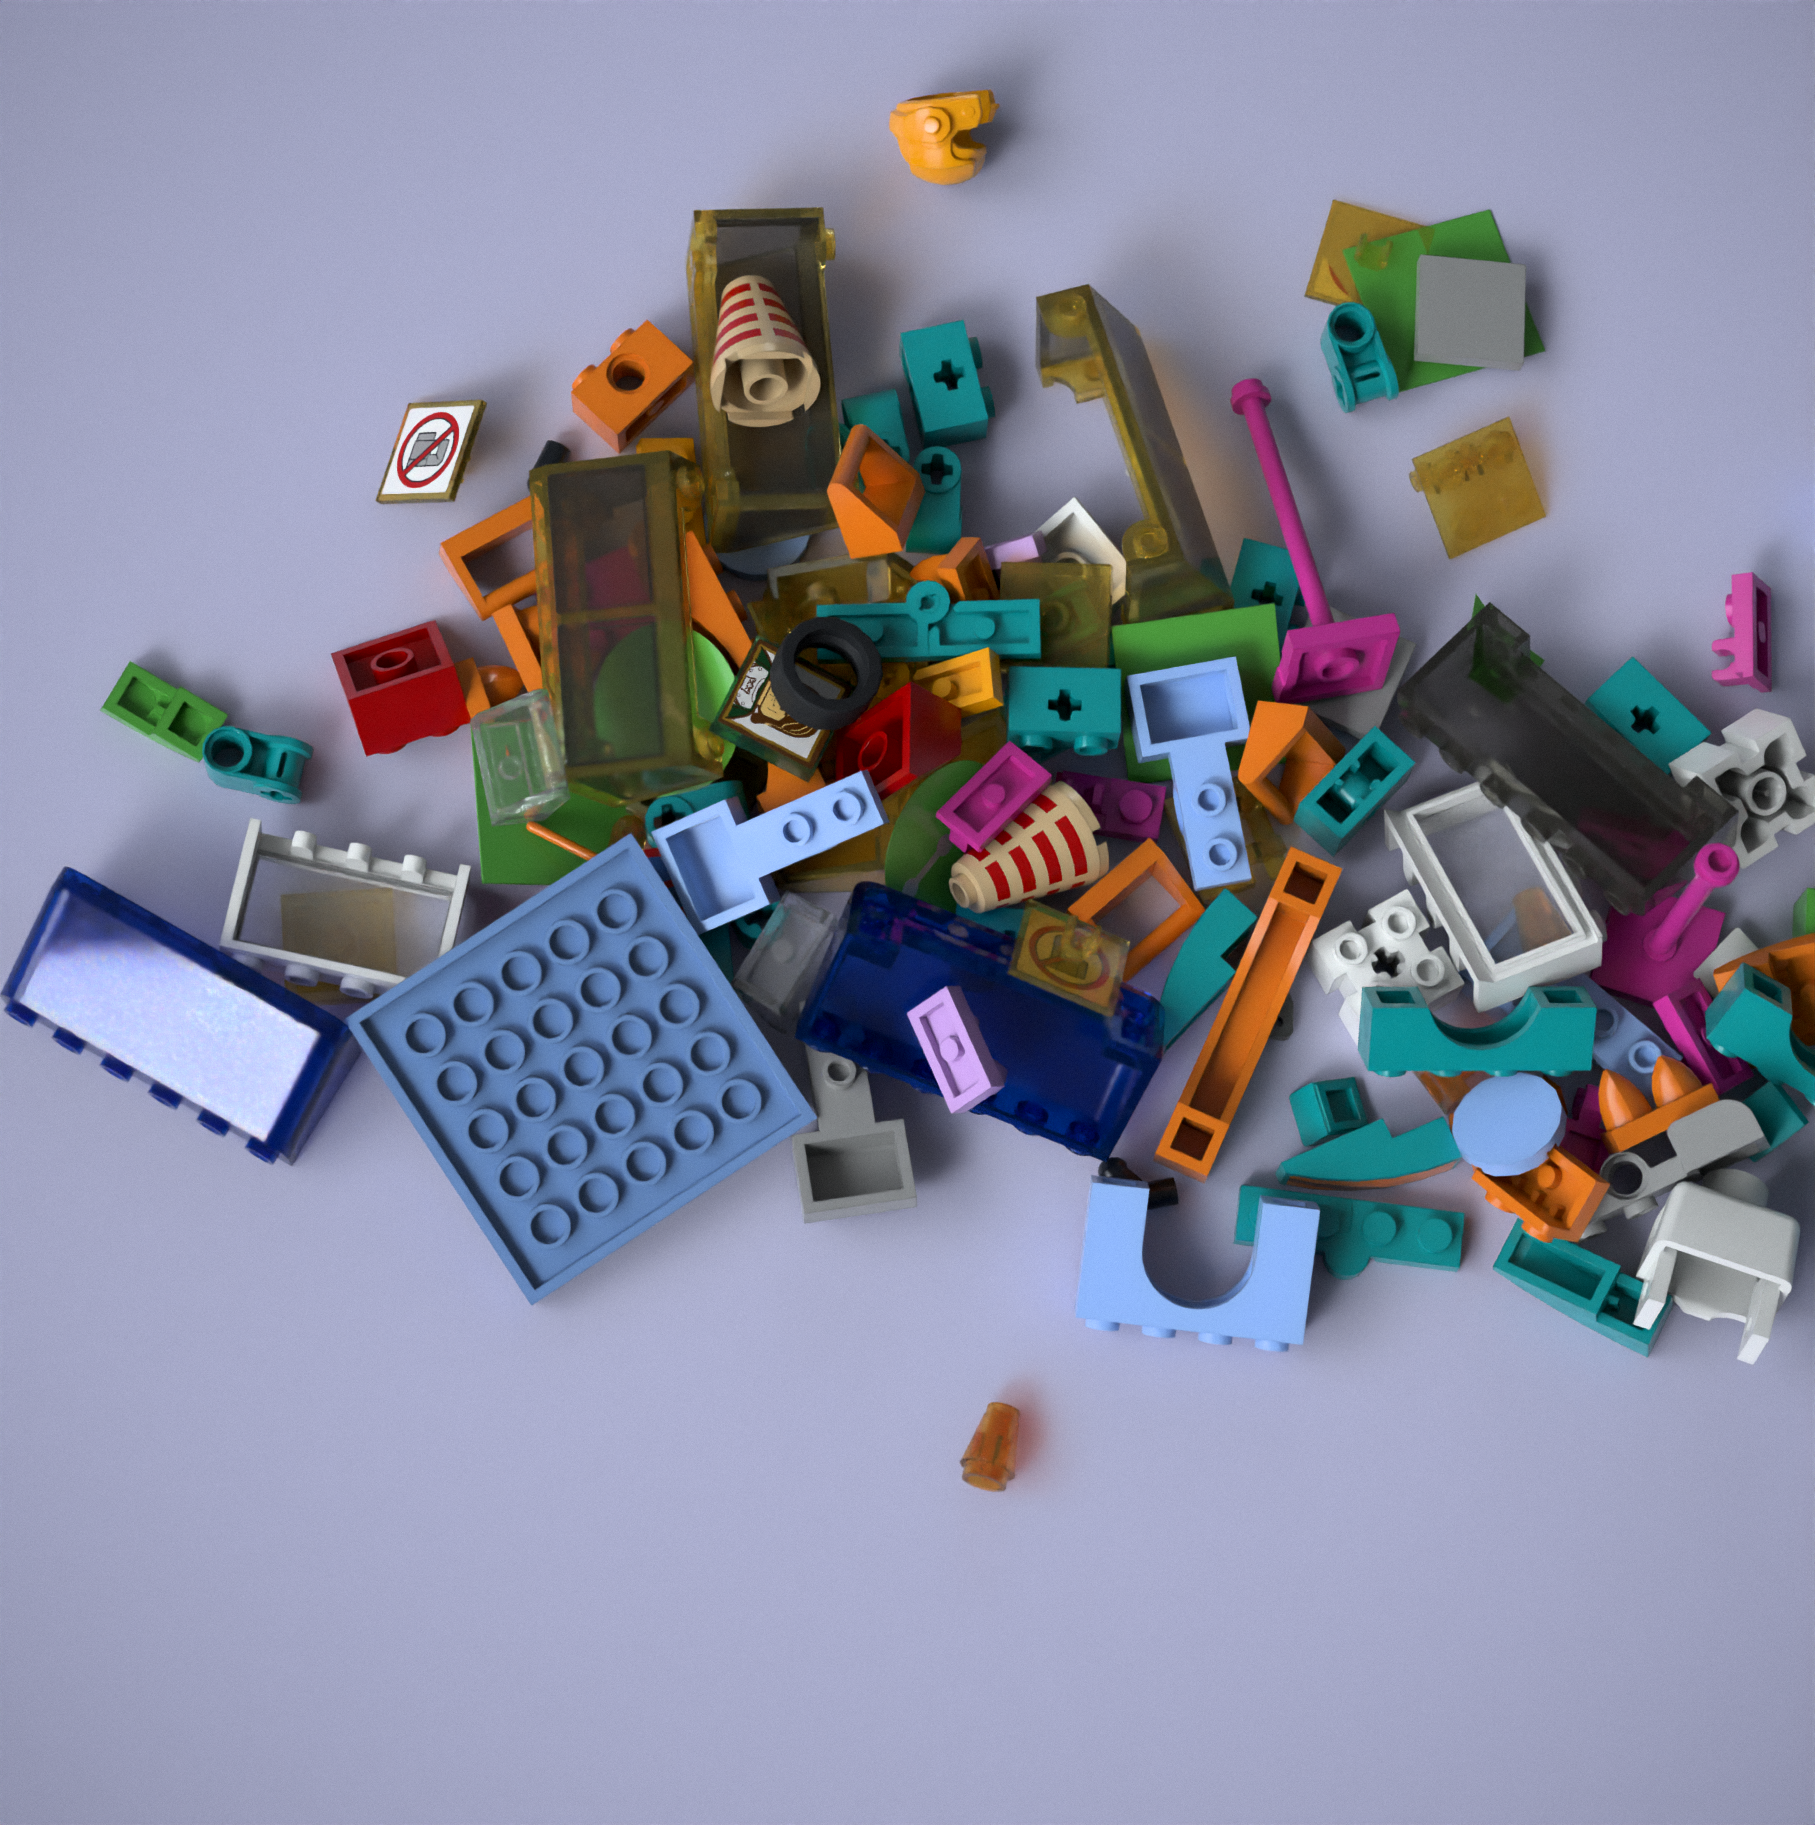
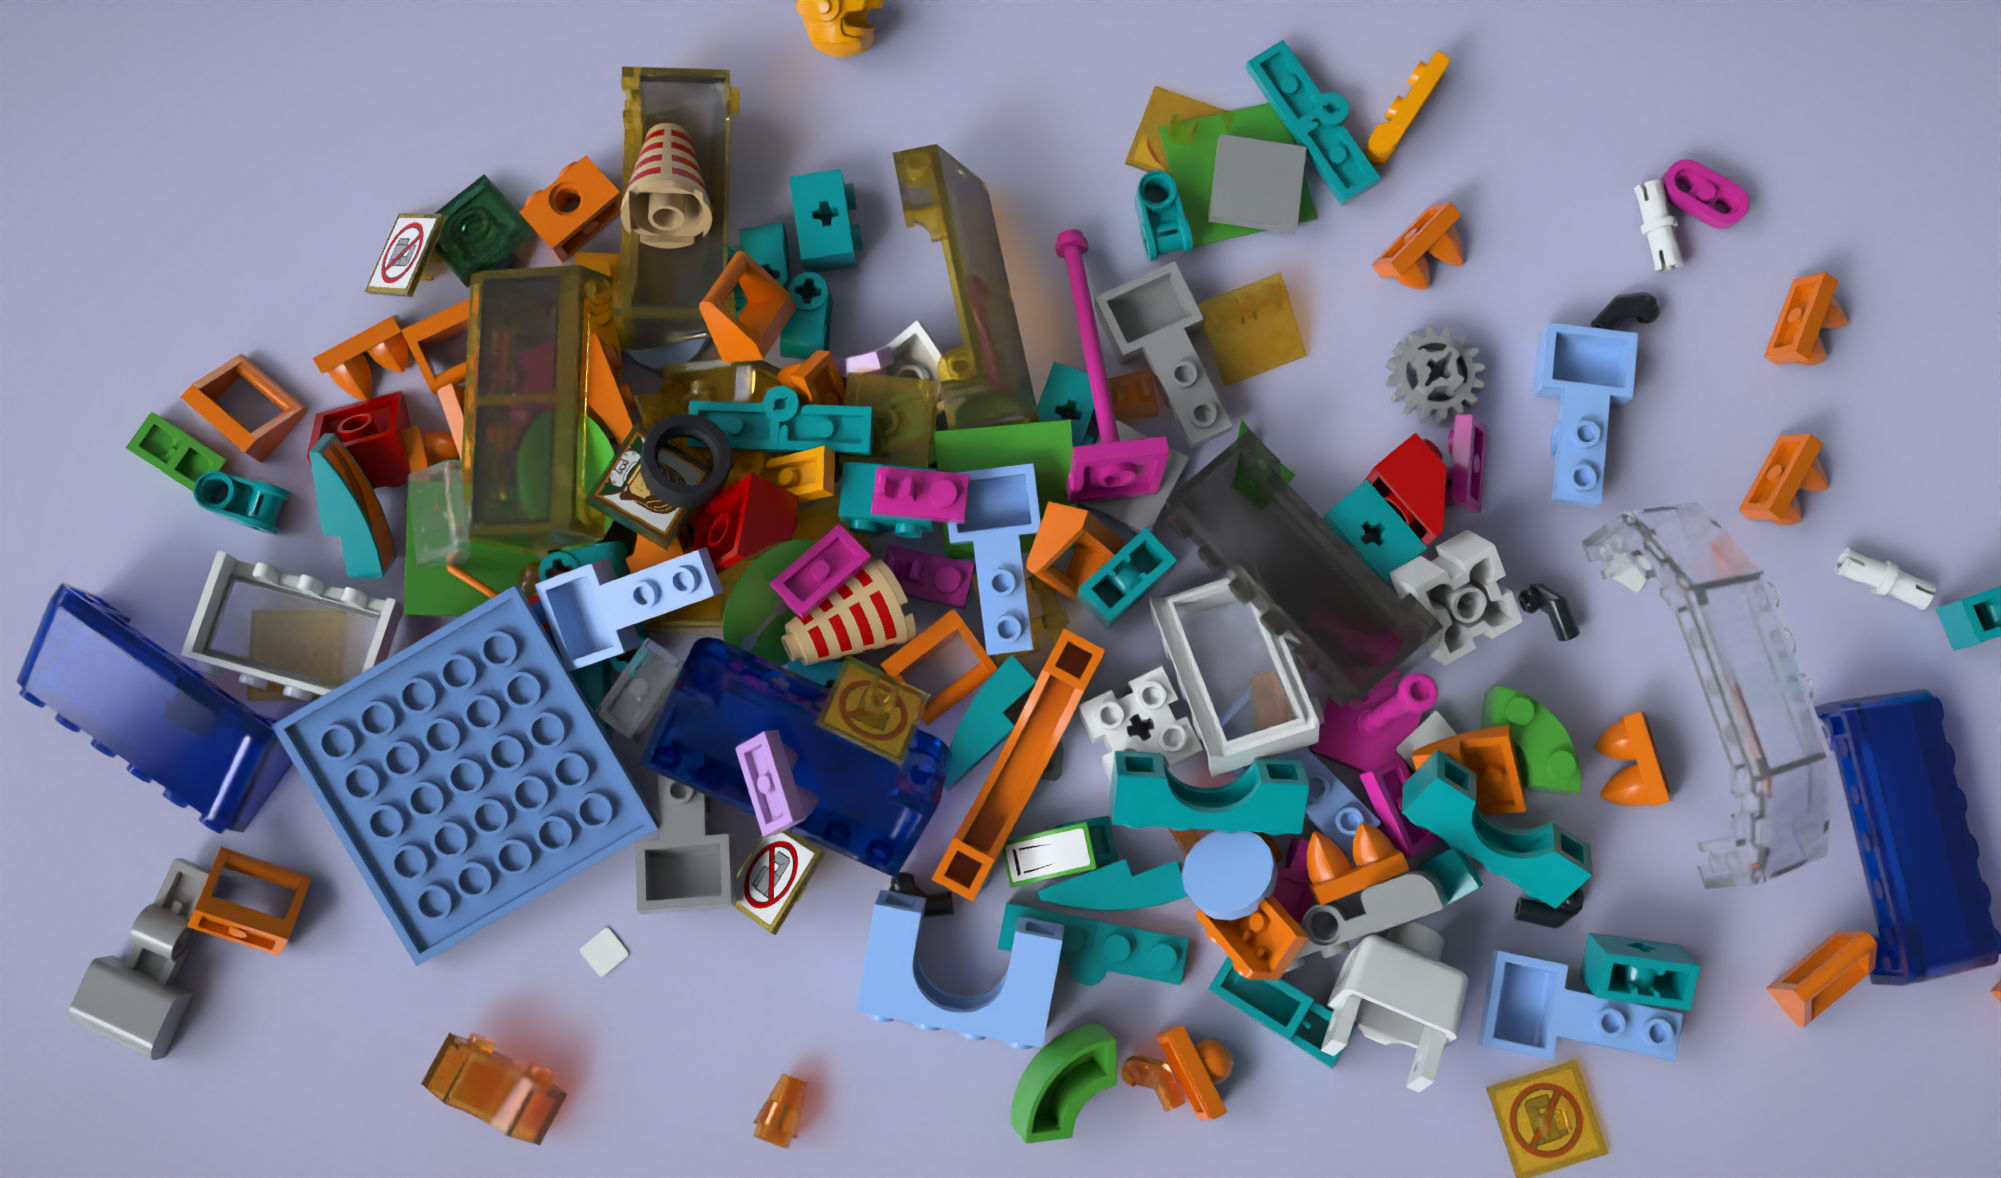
camera: 15 degrees right, 5 degrees up
(188, 1369) = (137, 998): none -> light grey plate
(231, 673) = (260, 443): none -> orange tile
(312, 1262) = (242, 923): none -> orange tile
(369, 590) = (349, 365): none -> orange tile
(405, 764) = (351, 510): none -> teal slope
(522, 418) = (479, 230): none -> clear green tile
(643, 1440) = (494, 1087): none -> clear orange brick
(754, 1279) = (604, 952): none -> white sticker
(962, 1167) = (775, 878): none -> piece
(1106, 699) = (920, 494): none -> dark pink plate
(1288, 1124) = (1050, 855): none -> white slope
(1329, 1382) = (1062, 1081): none -> bright green brick
(1344, 576) = (1133, 396): none -> clear orange tile
(1361, 482) = (1154, 320): none -> light grey plate
(1436, 1376) = (1155, 1075): none -> clear orange arm
(1487, 1363) = (1198, 1069): none -> orange tile
(1532, 234) = (1314, 122): none -> teal hinge
(1642, 215) = (1405, 111): none -> light orange hinge
(1682, 517) = (1450, 386): none -> light grey gear
(1683, 359) = (1430, 232): none -> orange tile
(1689, 659) = (1414, 485): none -> red slope

